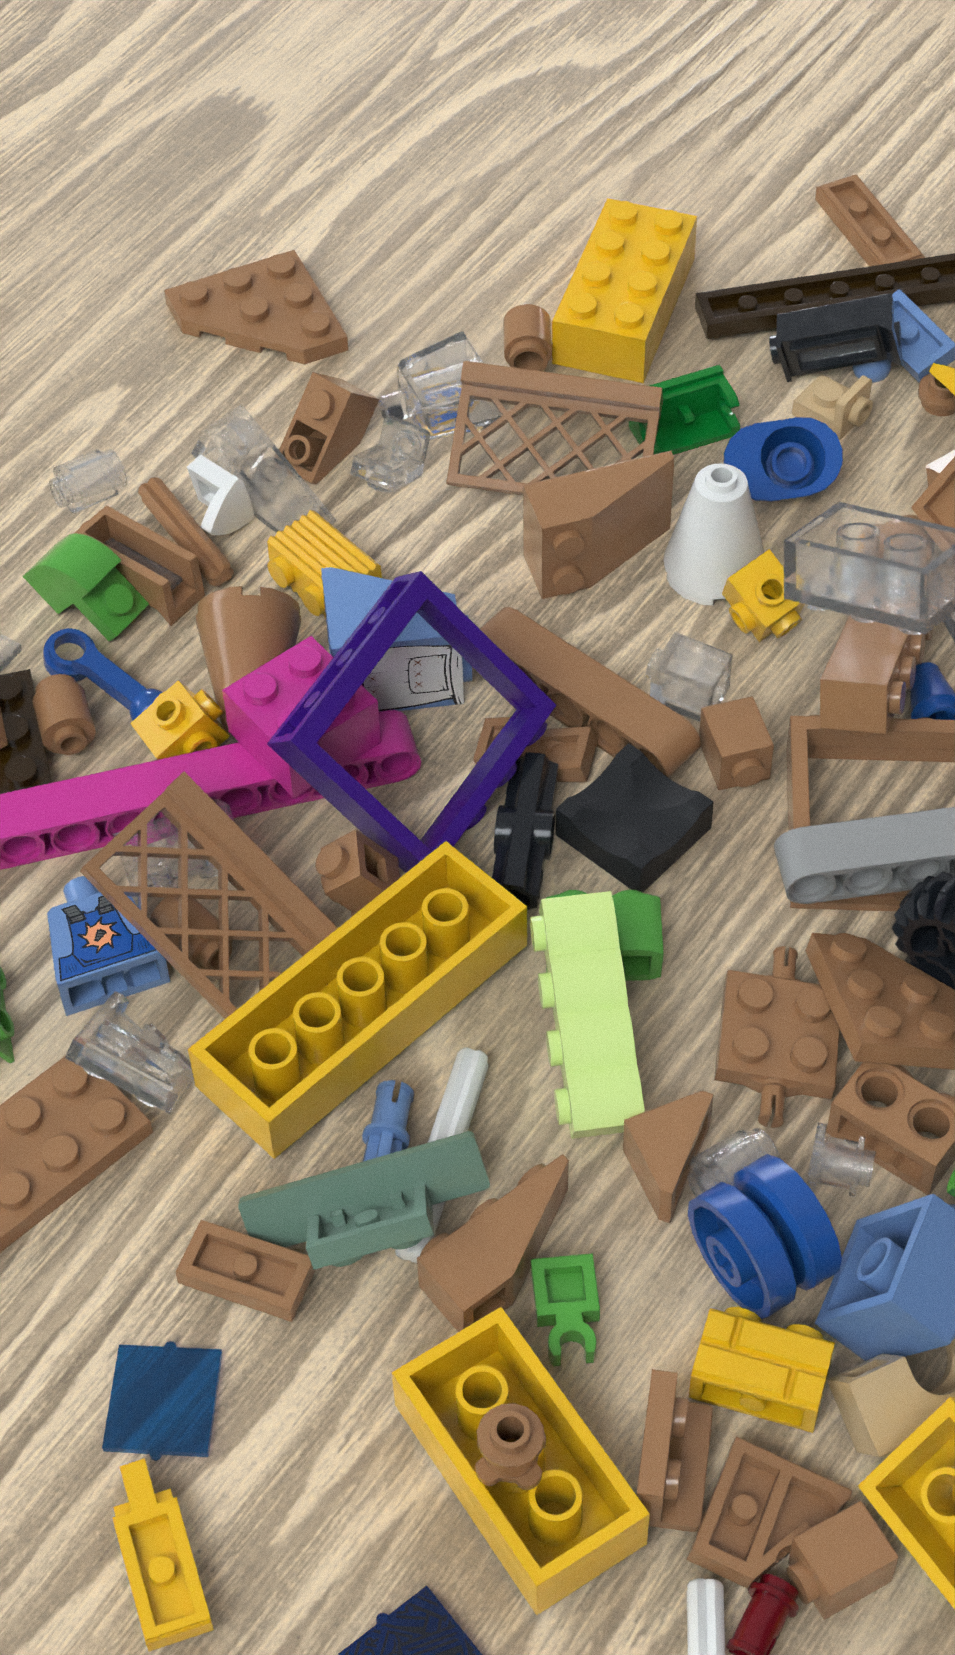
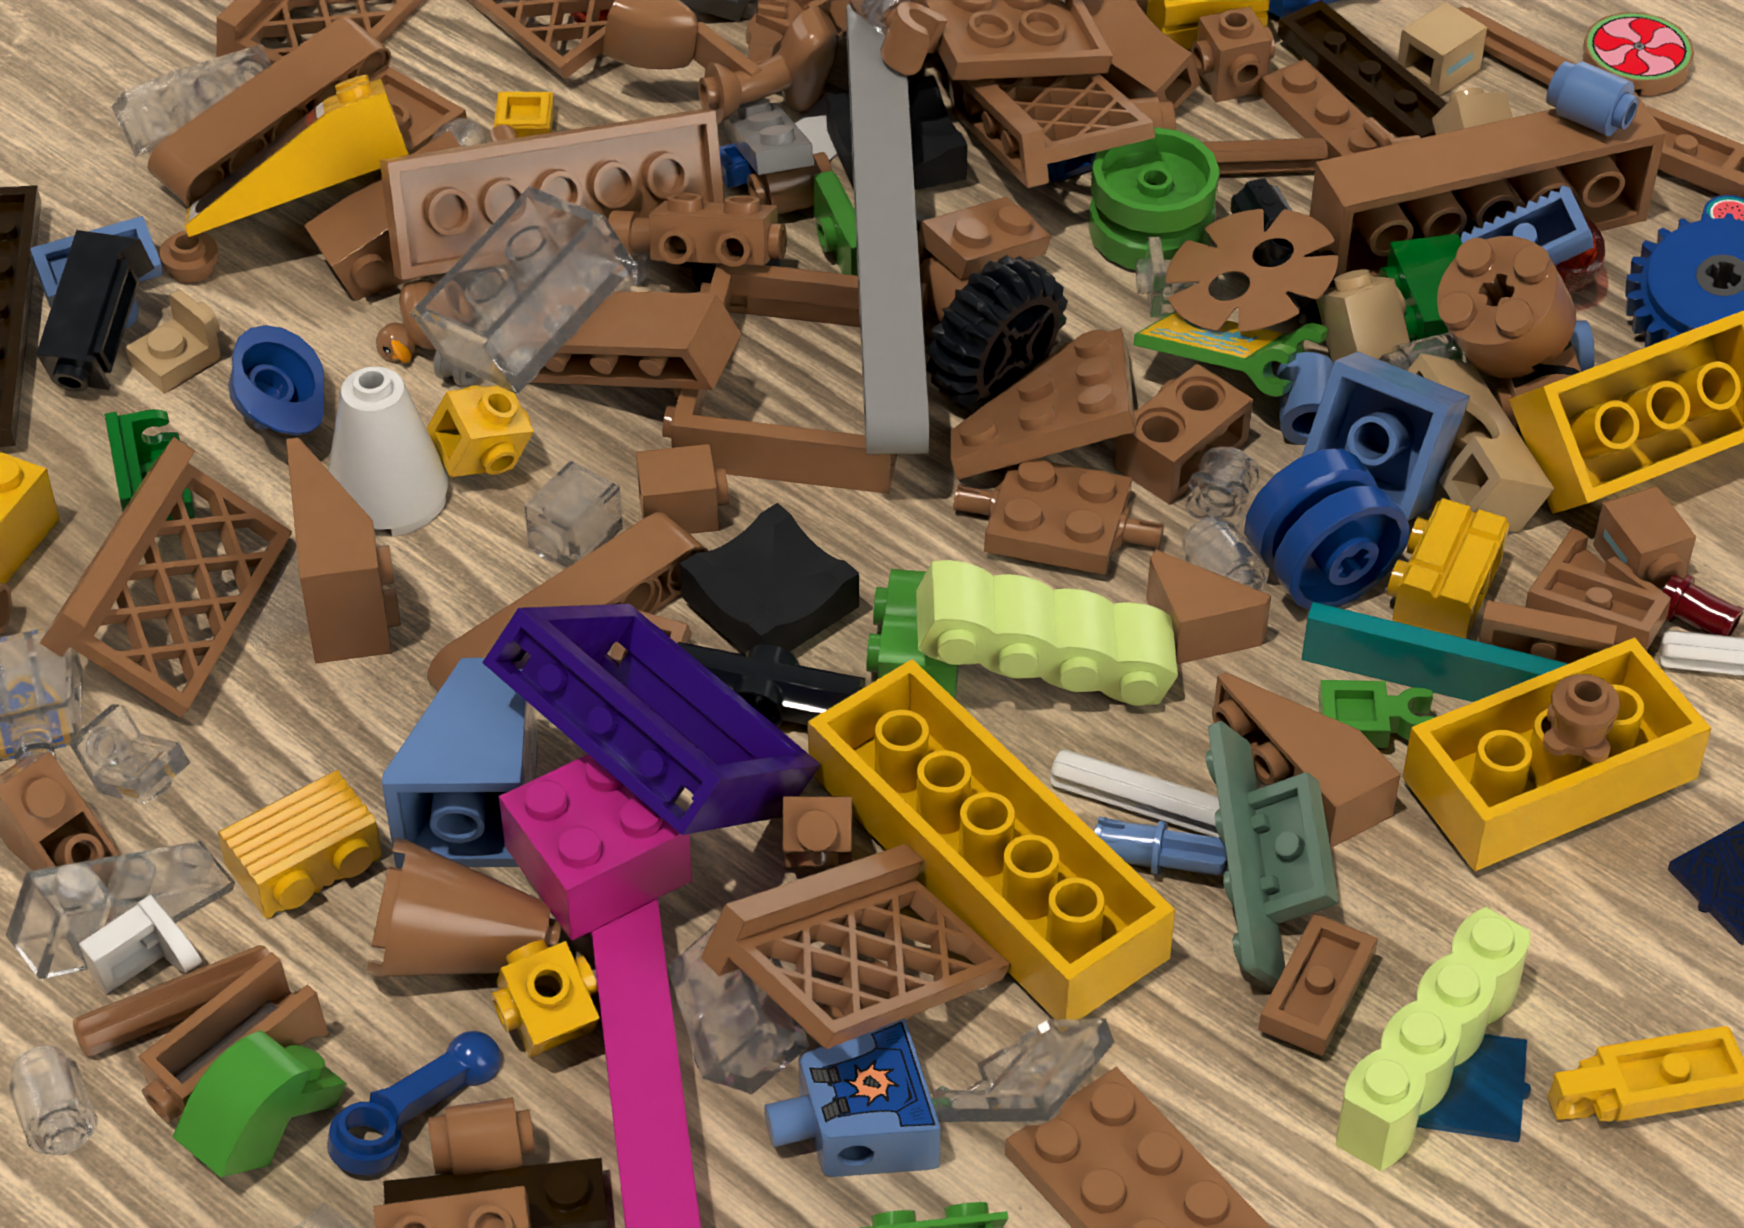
camera: 85 degrees left, 5 degrees down
(198, 1361) = (1431, 1037): none -> yellowish green brick
(639, 1350) = (1415, 655): none -> teal tile

